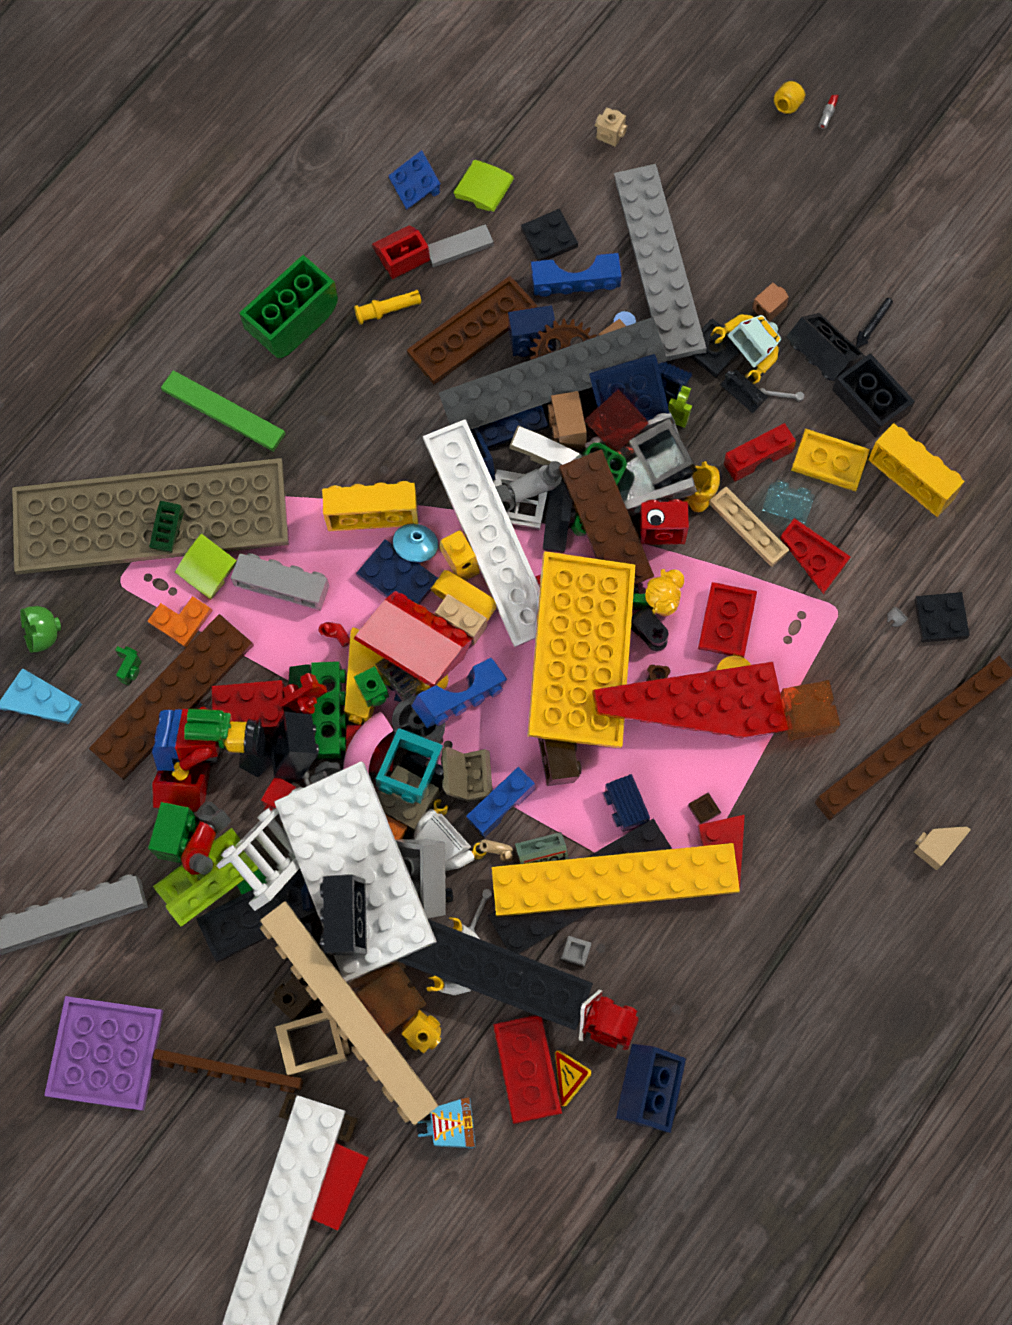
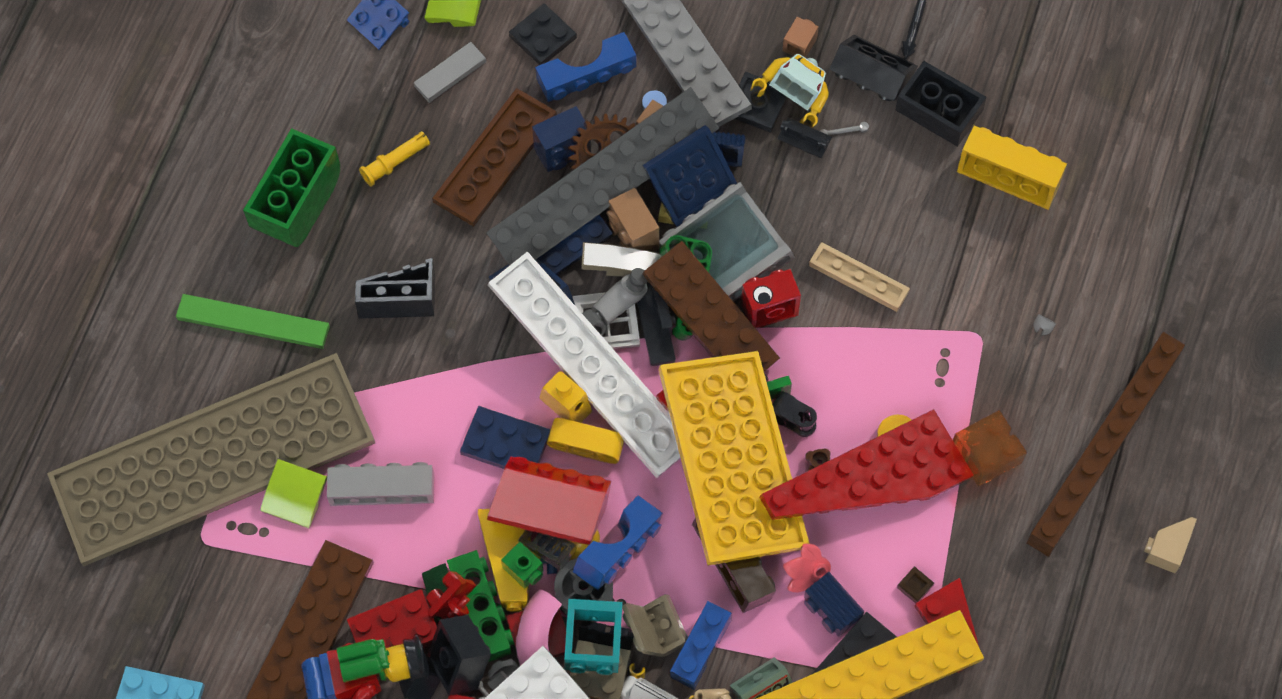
camera: 20 degrees left, 5 degrees down
(39, 627) = (131, 615): bright green cylinder -> none
(130, 667) = (247, 629): green bracket -> none
(163, 508) = (227, 444): dark green slope -> none
(181, 626) = (289, 565): orange plate -> none
(335, 630) = (459, 519): red arm -> none
(349, 423) = (398, 293): none -> black wedge
(370, 506) = (453, 374): yellow brick -> none
(402, 251) = (391, 94): red slope -> none
(415, 549) = (512, 399): medium azure dish -> none
(462, 617) = (592, 462): tan brick -> none
(611, 765) = (804, 568): none -> coral plate
(616, 421) = (686, 207): clear red plate -> none
(652, 438) = (730, 212): black window -> none
(664, 592) = (796, 370): yellow hair -> none
(679, 409) = (745, 174): lime plate -> none
(707, 483) = (802, 244): yellow hair -> none
(727, 620) = (871, 380): red plate -> none
(772, 444) = (833, 204): red arch -> none
(788, 501) = (891, 239): clear light blue bracket -> none
(815, 554) = (937, 285): red wing -> none
(830, 460) = (918, 183): yellow tile -> none
(941, 617) = (1089, 311): black plate -> none

